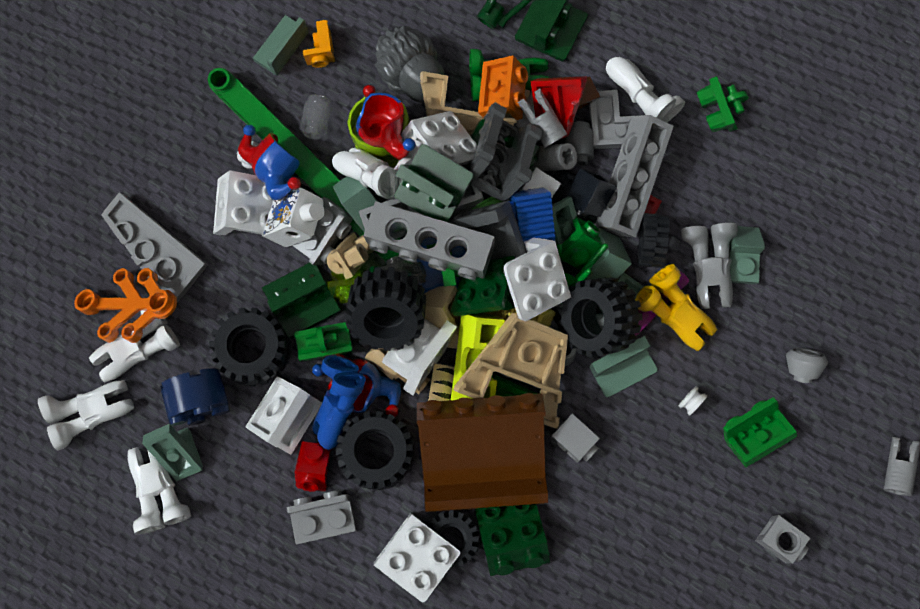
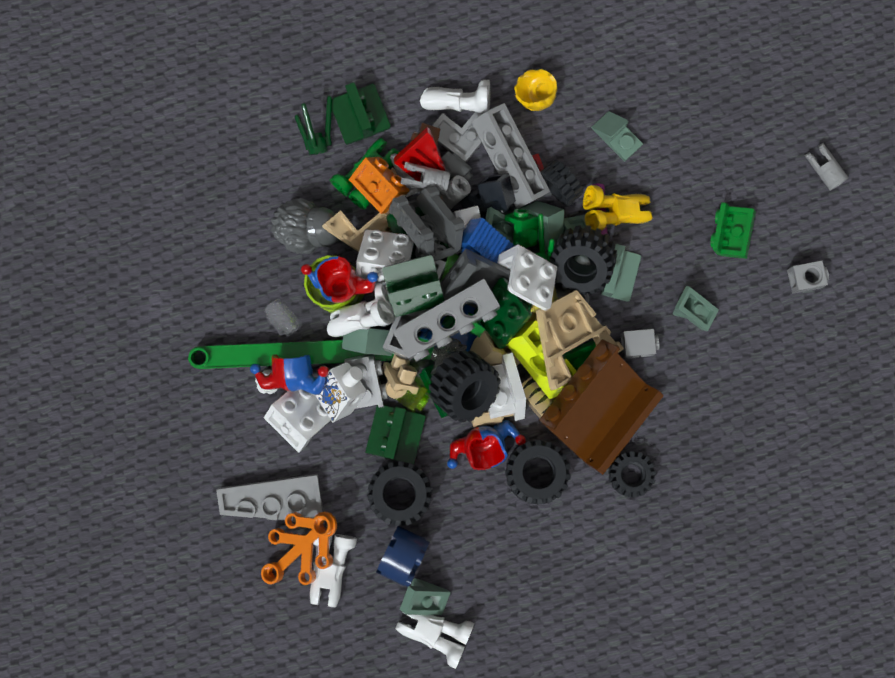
camera: 55 degrees left, 5 degrees up
(91, 407) = (345, 628): white piece -> none
(281, 44) = (208, 296): sand green panel -> none
(283, 415) = (461, 510): white bracket -> none
(312, 467) = (510, 520): red bracket -> none
(321, 517) = (548, 542): light grey bracket -> none
(323, 50) = (234, 267): light orange bracket -> none
(323, 341) = (438, 444): green hips -> none
(339, 400) = (487, 467): blue piece -> none
(416, 558) = (625, 505): white bracket -> none
(512, 538) = (664, 436): dark green bracket -> none
(654, 461) = (695, 309): none -> sand green slope
(692, 400) = (678, 251): white bush -> none
(714, 94) = (501, 56): green hips -> none
(714, 147) = (536, 89): none -> yellow hair
(715, 269) = (612, 163): light grey piece -> none
(805, 364) = (718, 164): light grey cone -> none

